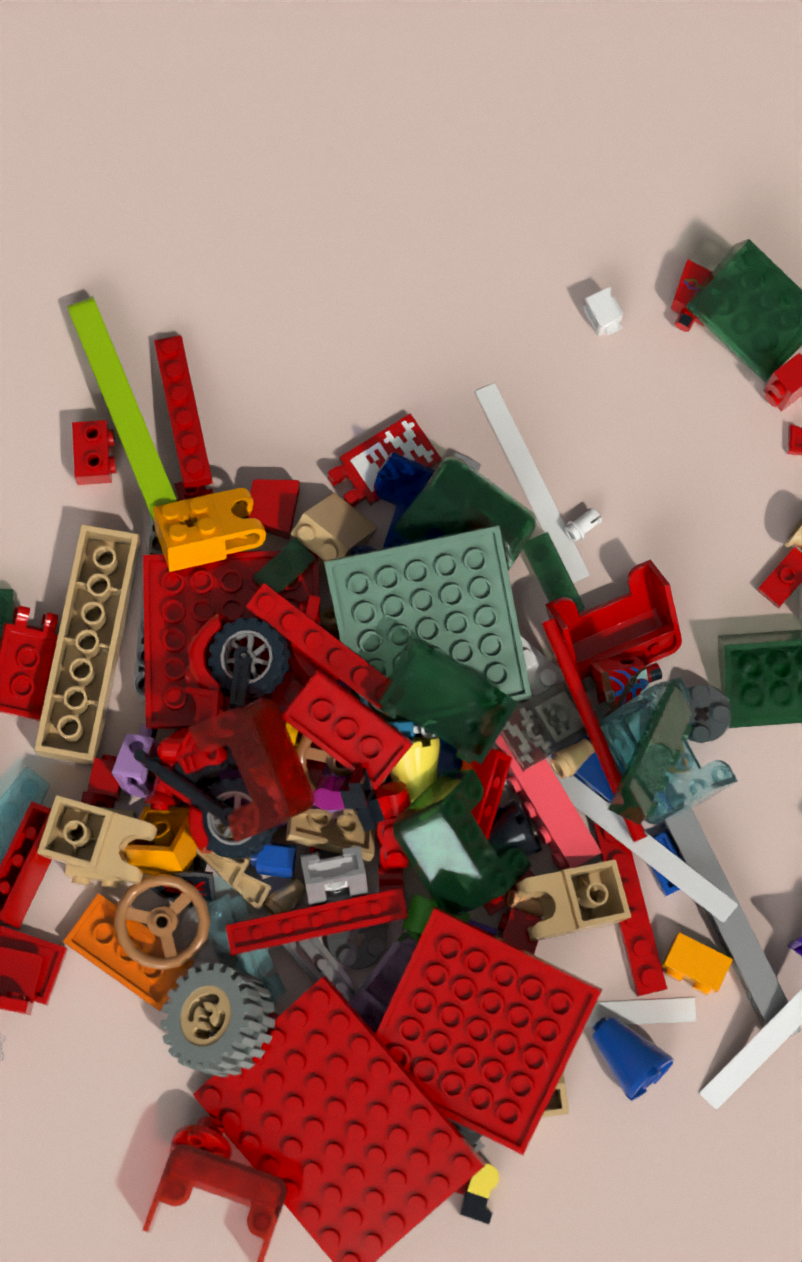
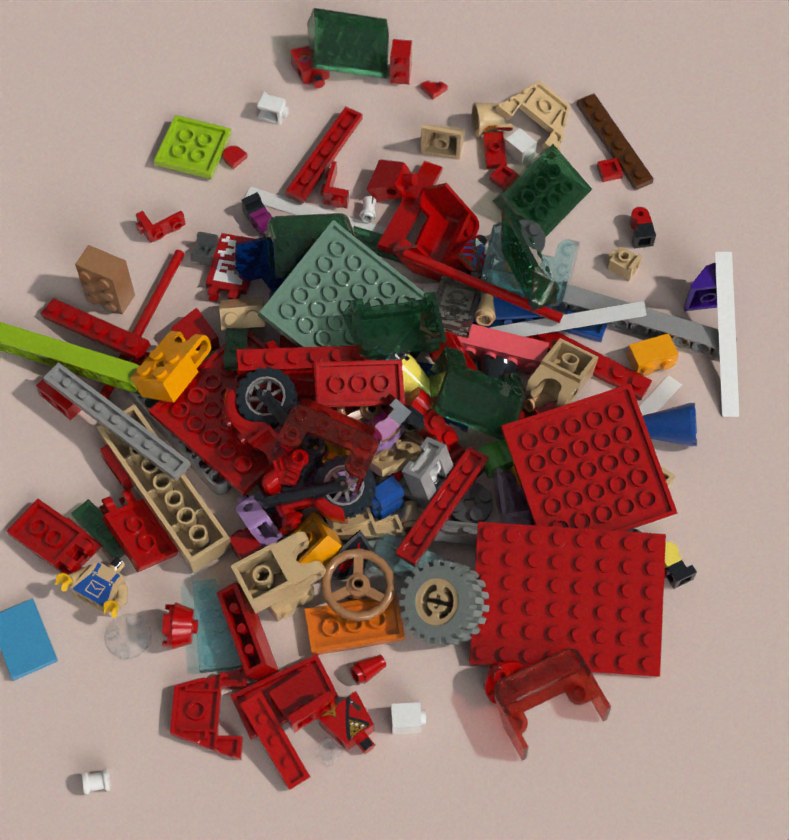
camera: 40 degrees left, 15 degrees down
(30, 1043) = (349, 724): none -> red torso
(65, 579) = (116, 467): none -> red tile
(84, 1089) = (407, 718): none -> white brick
(97, 1006) = (366, 669): none -> red cone
(101, 540) = (117, 421): none -> light grey plate
(236, 369) = (105, 279): none -> medium nougat brick
(250, 439) = (151, 307): none -> red piece
(352, 353) = (161, 228): none -> red bracket
(374, 417) = (205, 248): none -> dark grey bracket
(466, 425) = (256, 212): none -> leg
(479, 283) = (193, 147): none -> lime plate
(511, 332) = (234, 156): none -> red tile
(562, 480) = (334, 196): none -> red bracket
(603, 417) = (324, 155): none -> red plate
(616, 566) = (408, 209): none -> red tile
(634, 515) = (390, 180): none -> red torso
(741, 518) = (442, 140): none -> tan slope
(760, 617) = (502, 176): none -> red plate
(773, 843) = (624, 262): none -> tan brick

